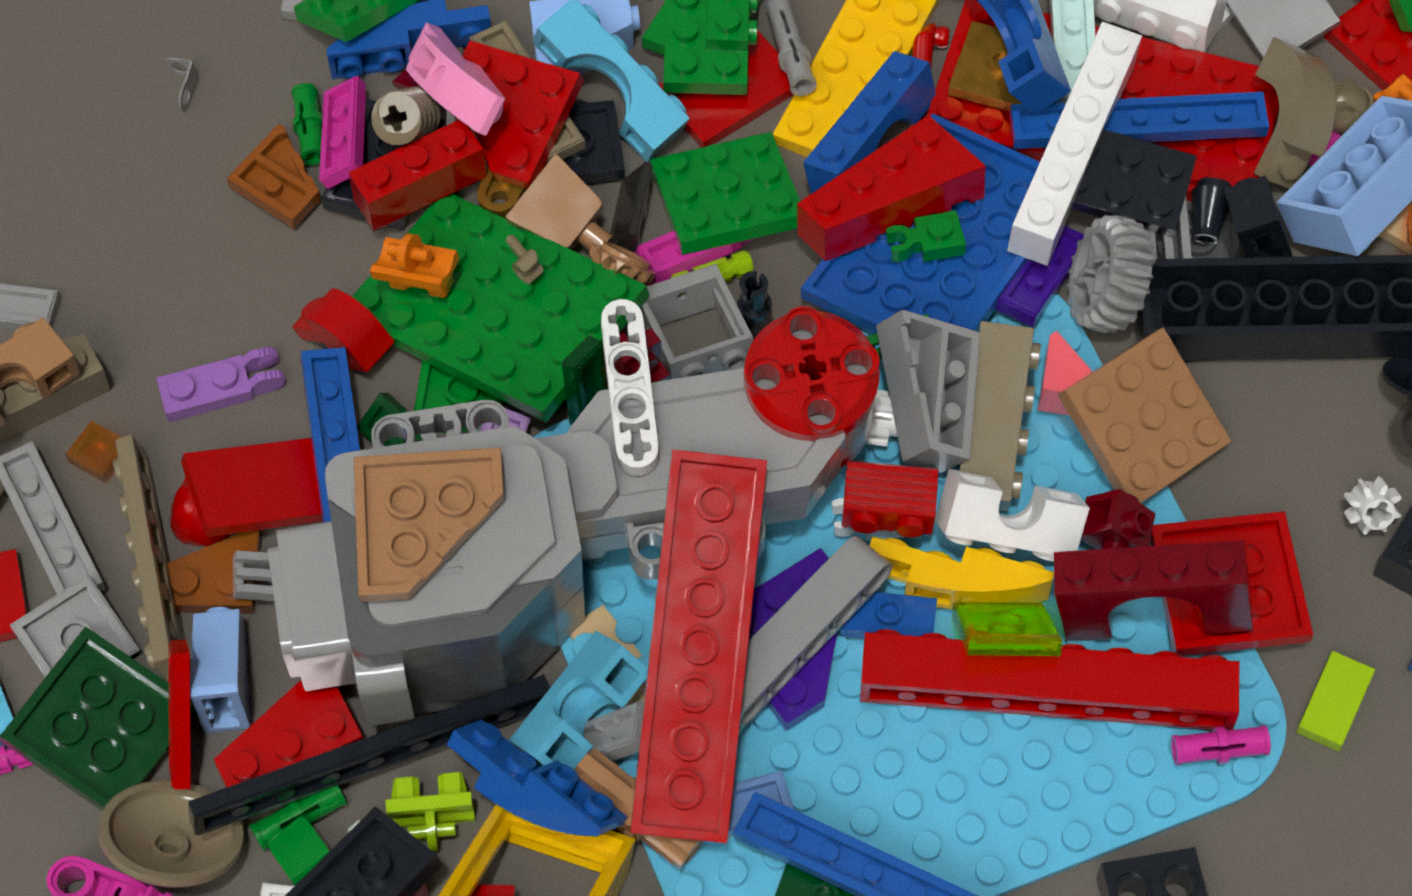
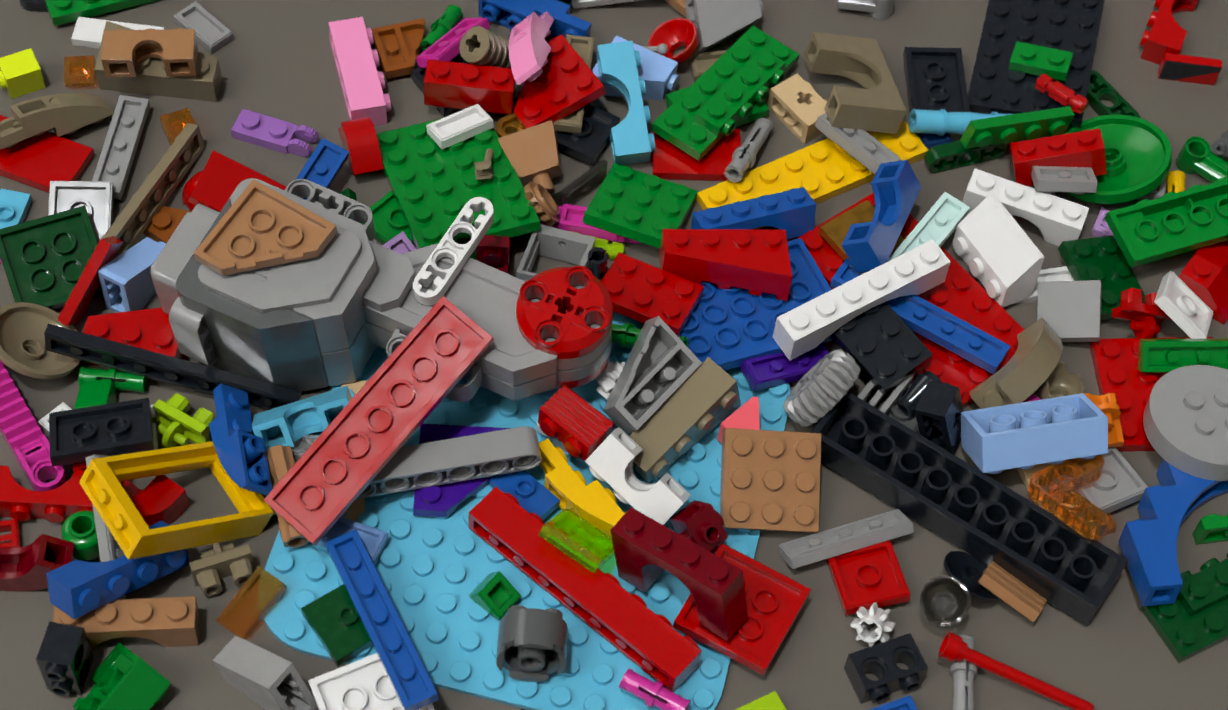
camera: 30 degrees right, 5 degrees down
(257, 240) = (358, 70): none -> bright pink brick
(414, 264) = (423, 132): orange hips -> none
(450, 220) = (459, 126): none -> white tile
(846, 282) = (648, 292): none -> red plate
(927, 39) = (833, 198): red arm -> none
(933, 235) = (732, 302): green plate -> none
(955, 756) = (495, 594): none -> green slope
(1056, 782) = (532, 643): none -> dark grey brick
(1263, 429) = (845, 538): none -> light grey tile
(1321, 456) = (868, 577): none -> red plate

